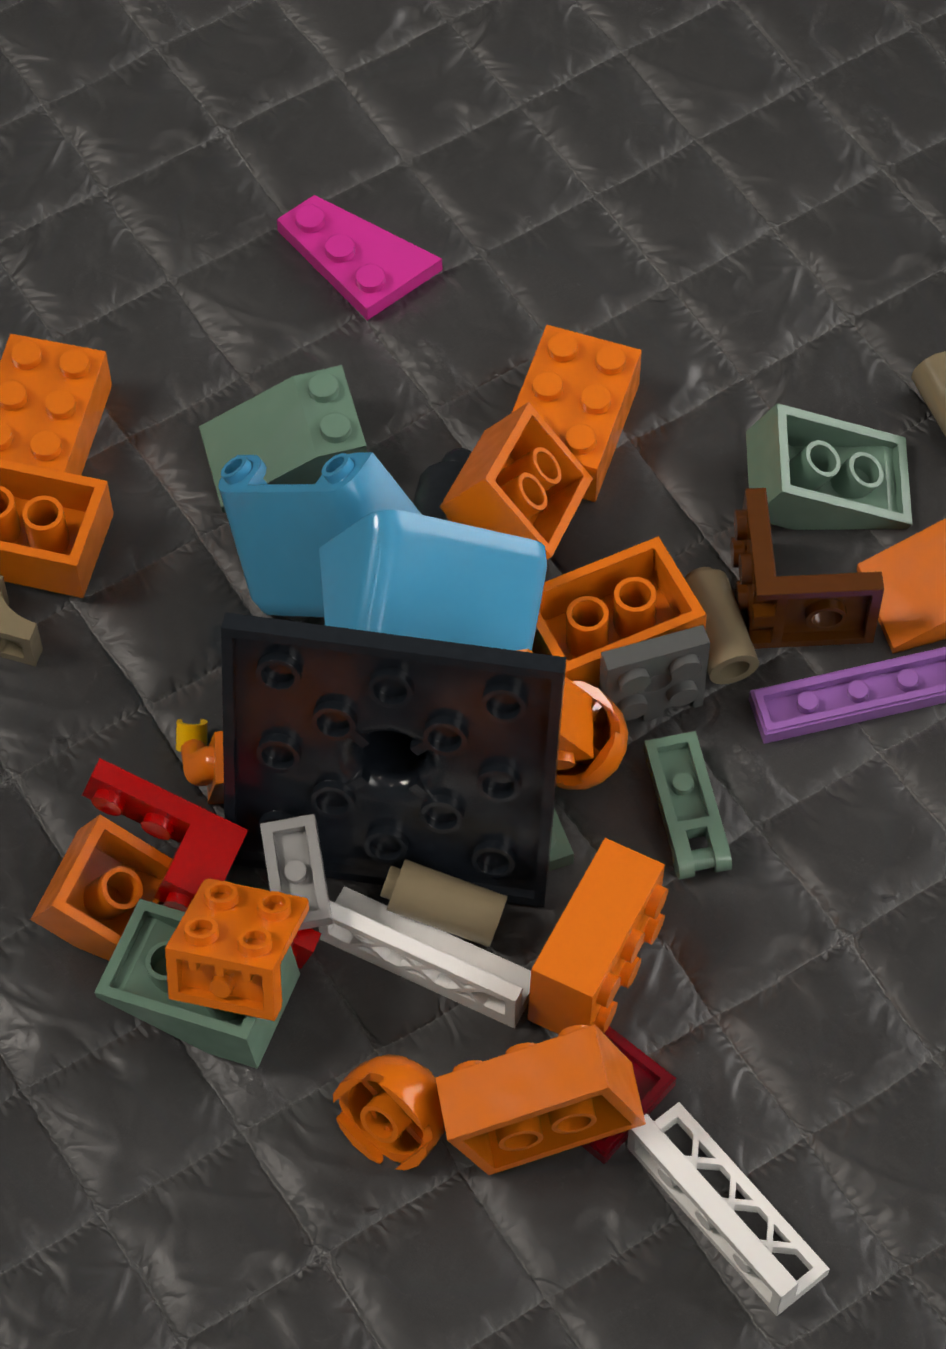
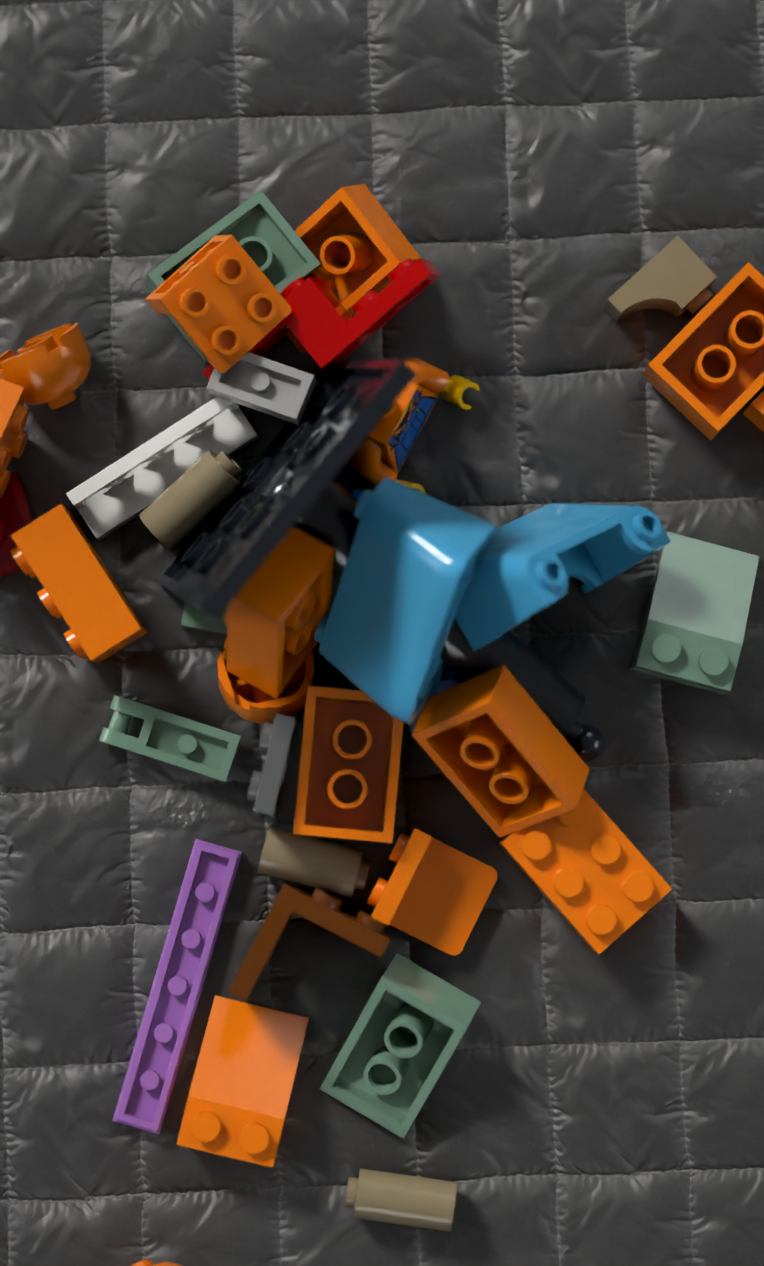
camera: 120 degrees right, 25 degrees up
(683, 512) = (432, 892): none -> orange bracket

